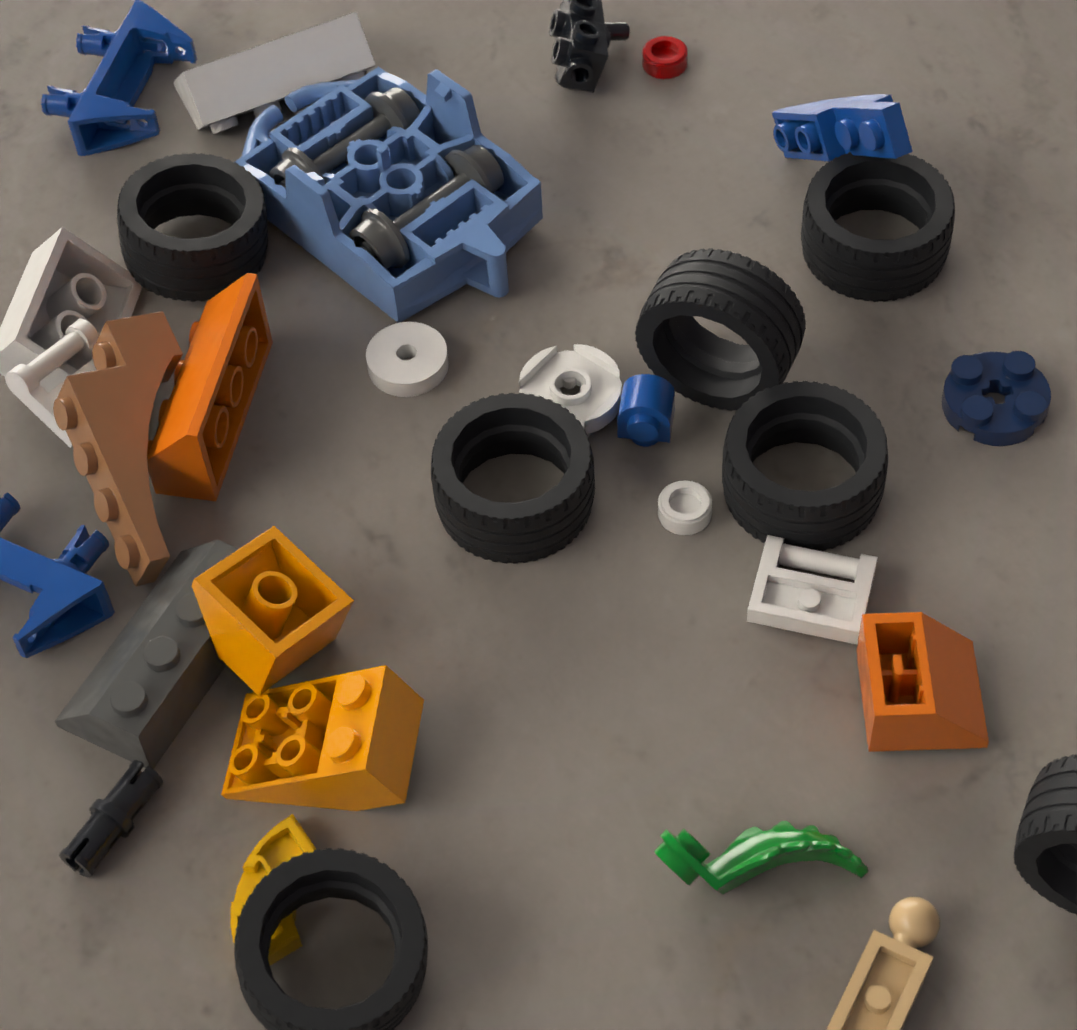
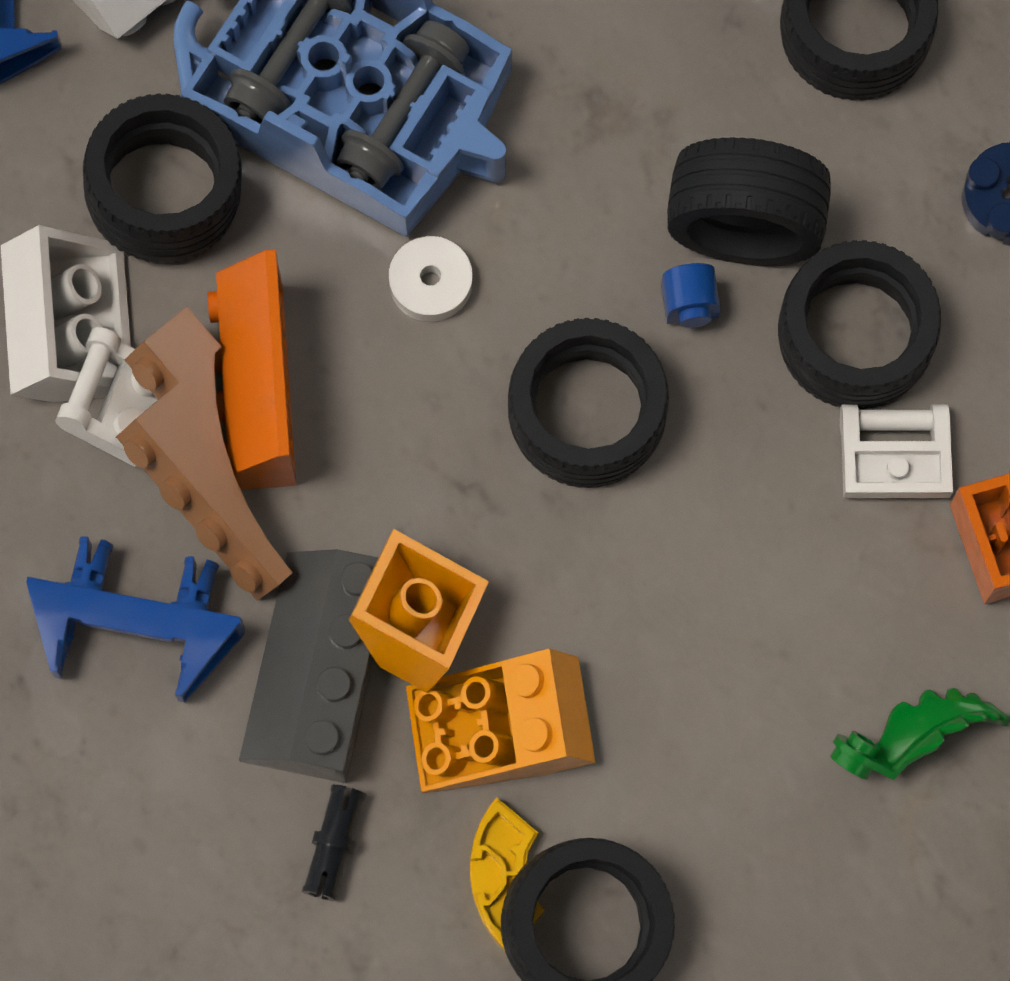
camera: 20 degrees left, 20 degrees up
(584, 367) = (597, 256): white plate -> none
(685, 507) = (753, 388): white tile -> none

